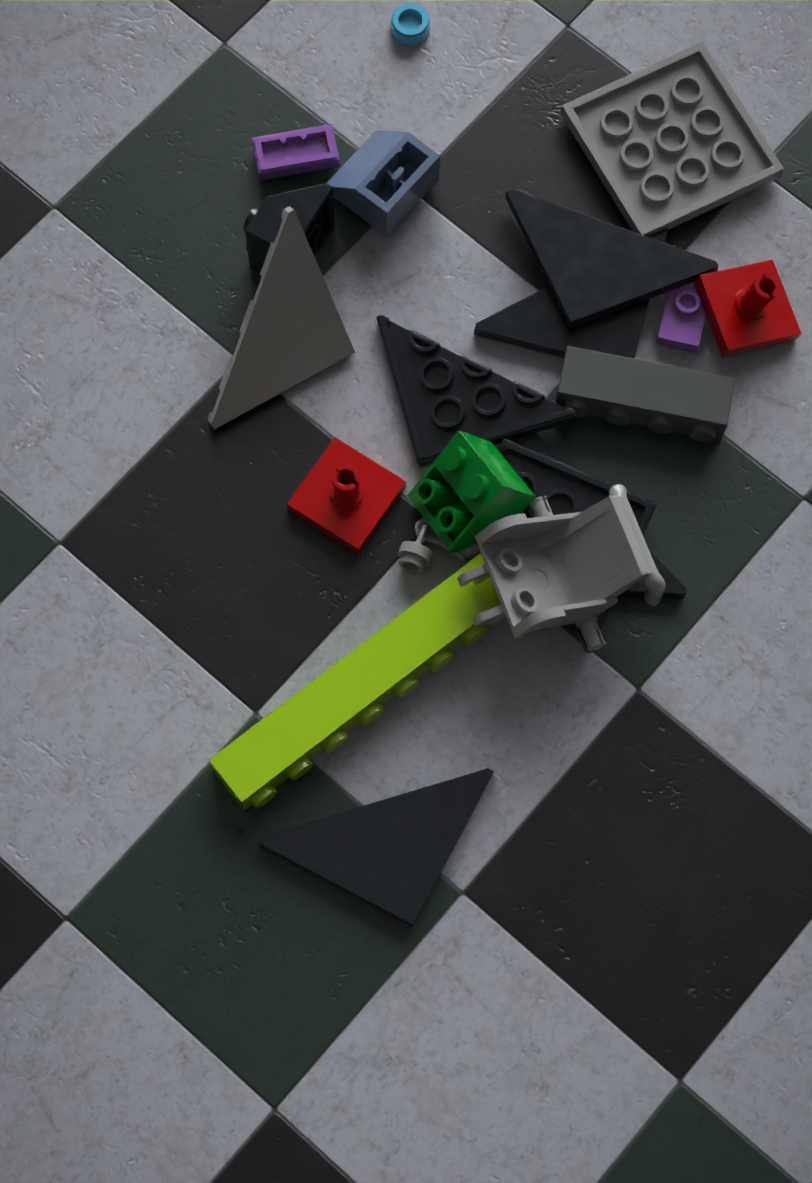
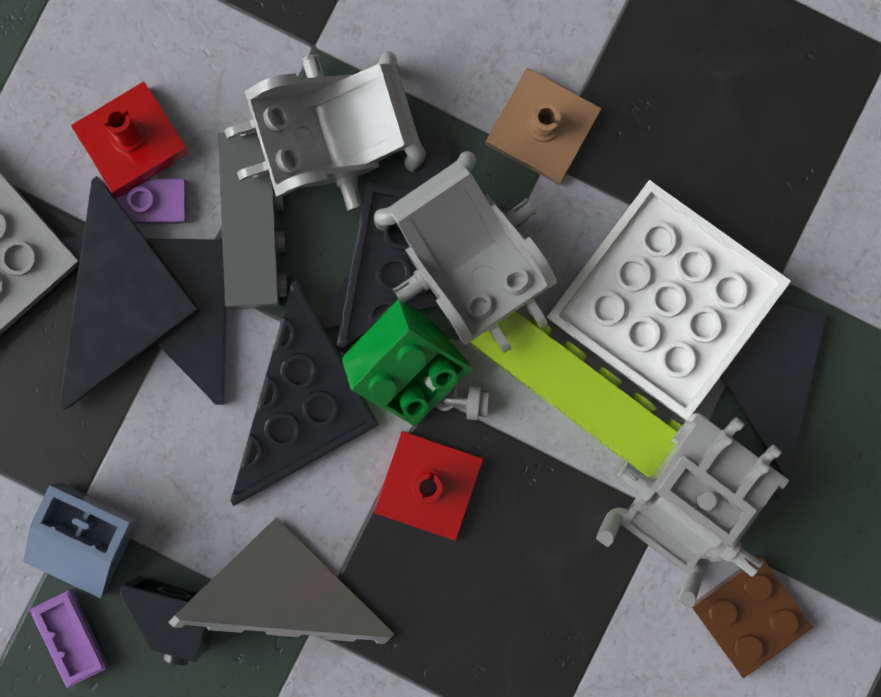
camera: 105 degrees left, 15 degrees up
(127, 768) = (751, 617): none -> reddish brown plate
(260, 725) = (698, 501): none -> light grey piece
(469, 764) = (668, 300): none -> white plate
(676, 692) = (542, 126): none -> medium nougat tile
(719, 476) = (329, 127): none -> light grey piece

